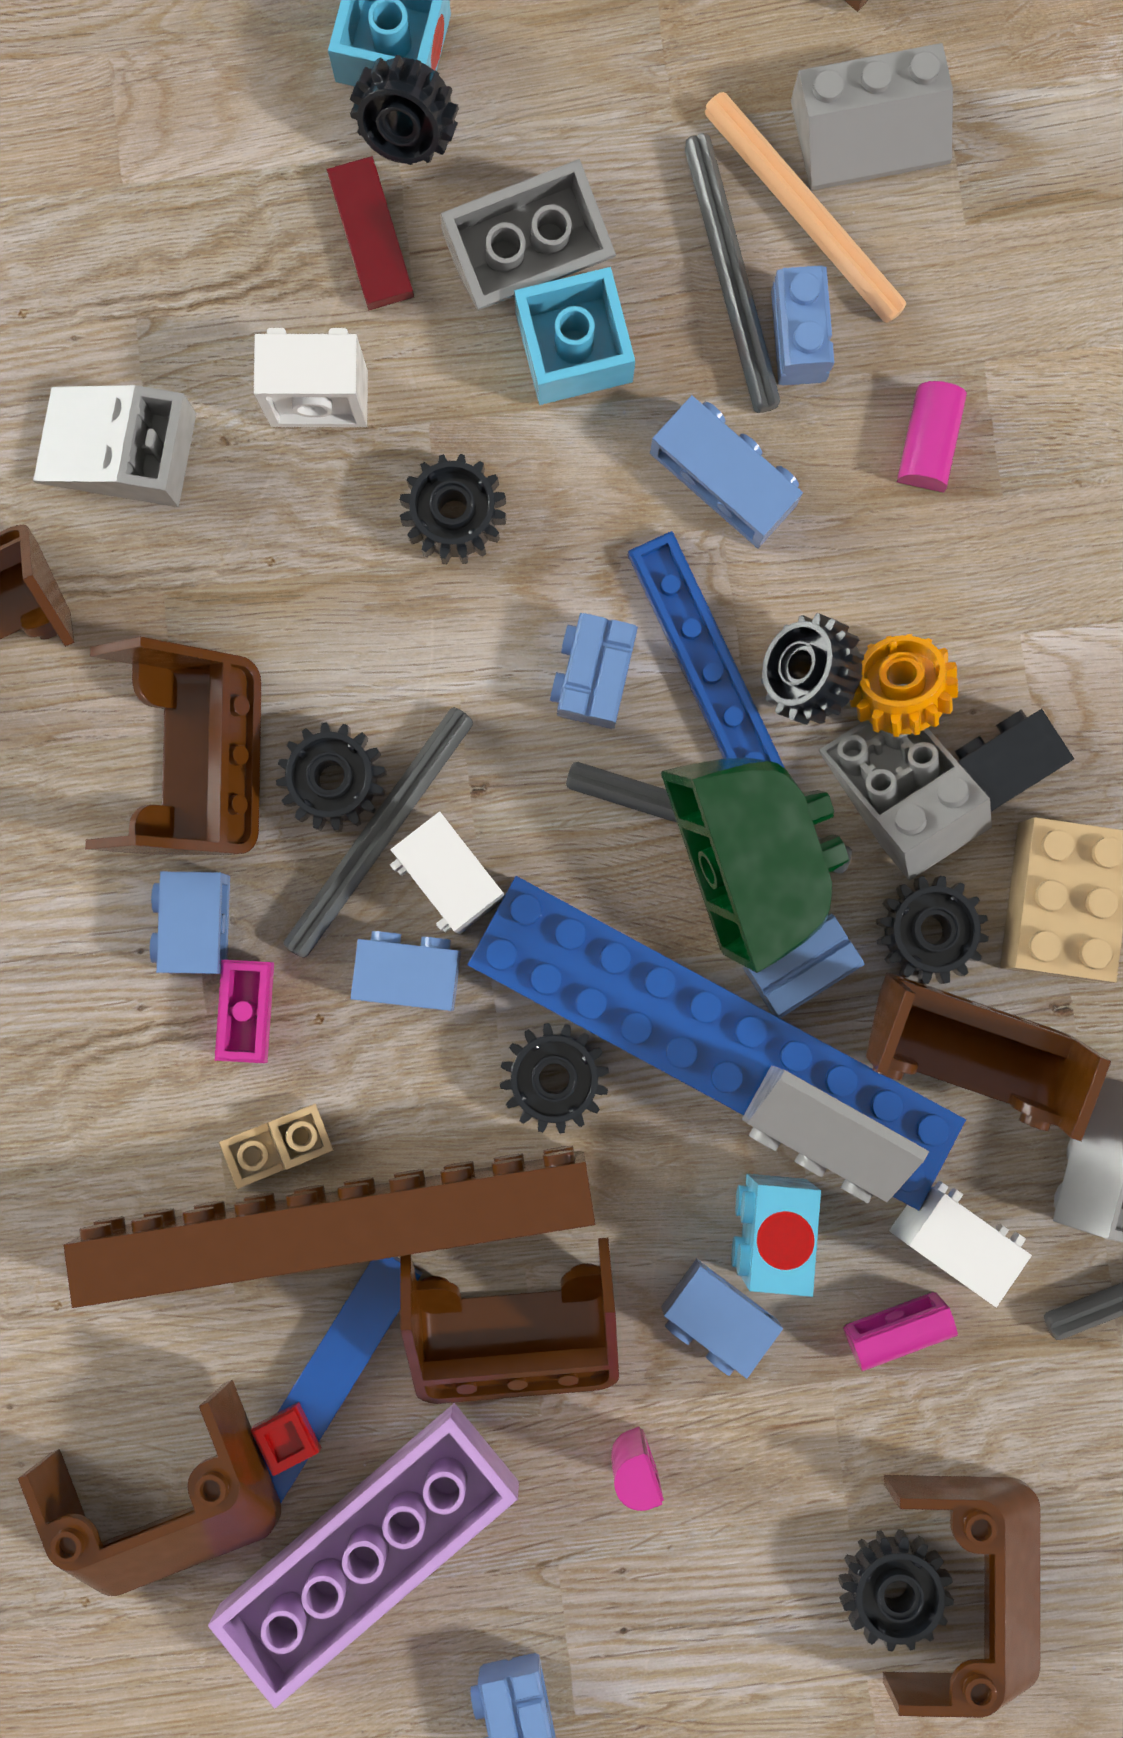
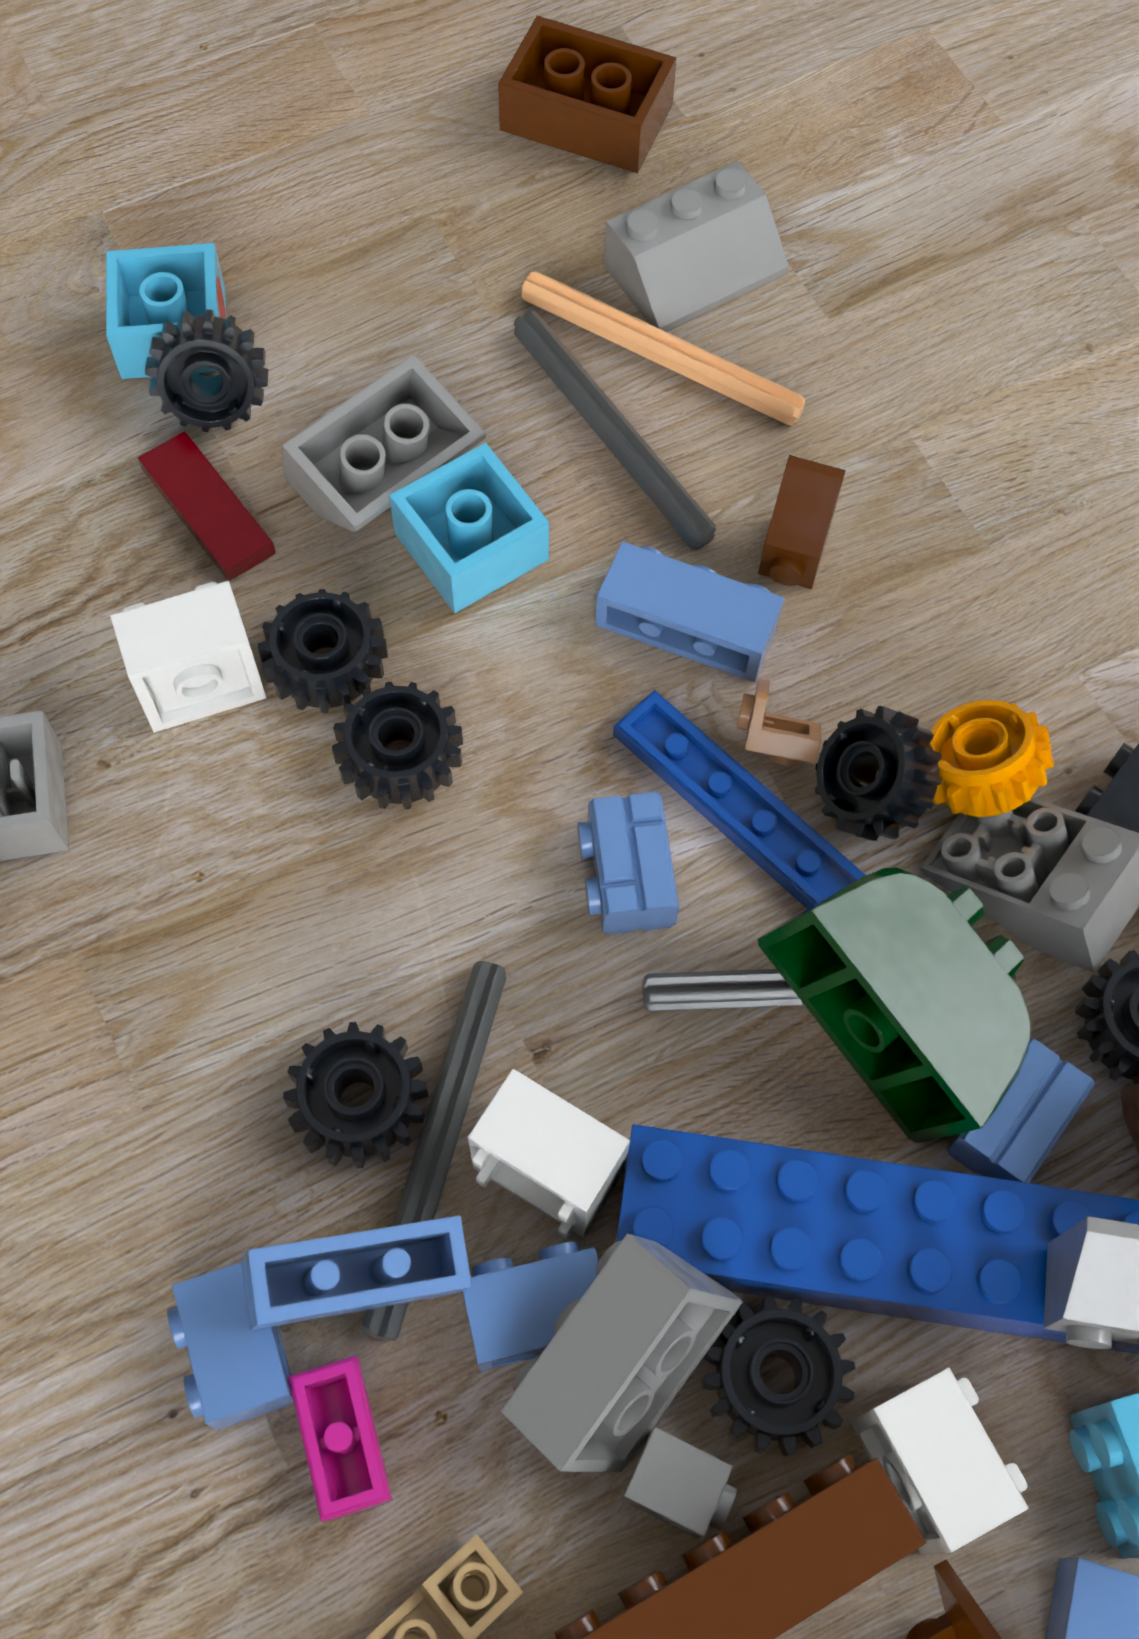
camera: 20 degrees left, 20 degrees down
(207, 749) = (185, 1113): reddish brown windscreen -> none
(284, 912) = (354, 1272): none -> medium blue brick
(416, 379) = (315, 623): none -> black gear
(445, 1031) = (618, 1357): none -> light grey slope
(460, 1123) = (681, 1485): none -> light grey brick
(635, 1176) = (942, 1462): none -> white container
(751, 604) = (781, 737): none -> medium nougat bracket
(802, 325) = (709, 447): medium blue brick -> none
(845, 429) = (801, 522): none -> reddish brown slope
(932, 435) = (890, 511): dark pink brick -> none

